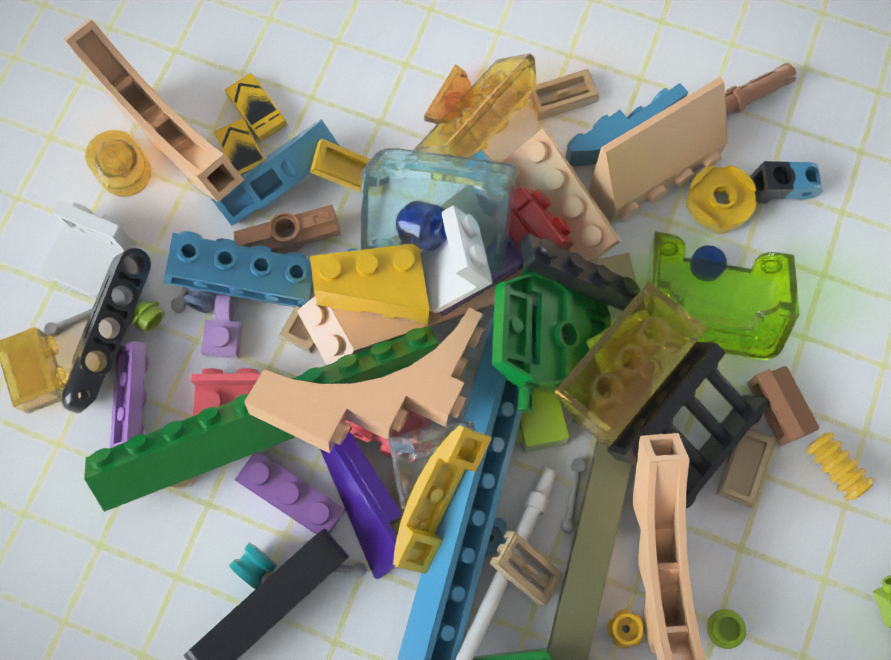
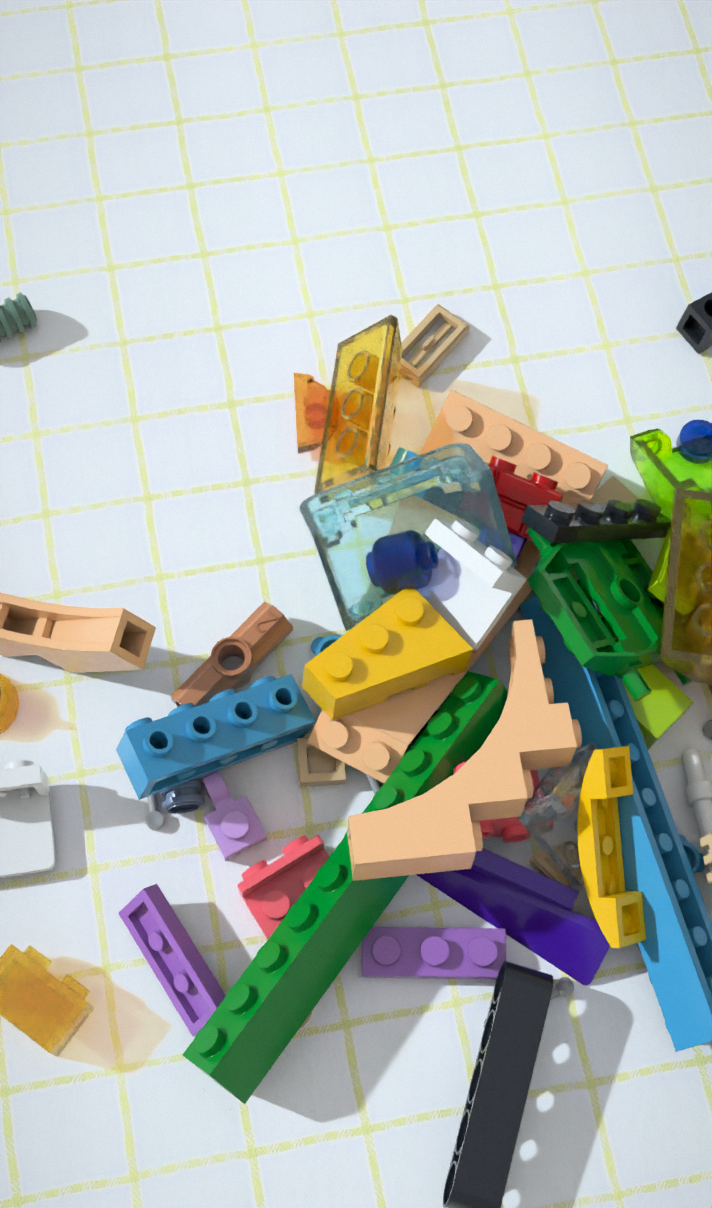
camera: 40 degrees left, 5 degrees down
(54, 329) = (21, 938): light grey hinge -> none
(80, 377) = (103, 875): black piece -> none
(147, 316) = (131, 852): lime plate -> none
(239, 146) = (101, 590): tile -> none
(252, 565) = (450, 1055): teal wheel -> none
(255, 107) = (92, 542): yellow tile -> none
(274, 175) = (180, 597): dark azure slope -> none
(338, 164) = (250, 552): yellow tile -> none
(586, 148) = (527, 349): dark azure slope -> none
(661, 152) = (587, 351): light nougat slope -> none
(721, 216) = (663, 387): yellow plate -> none
(738, 97) = (613, 253): nougat pin -> none

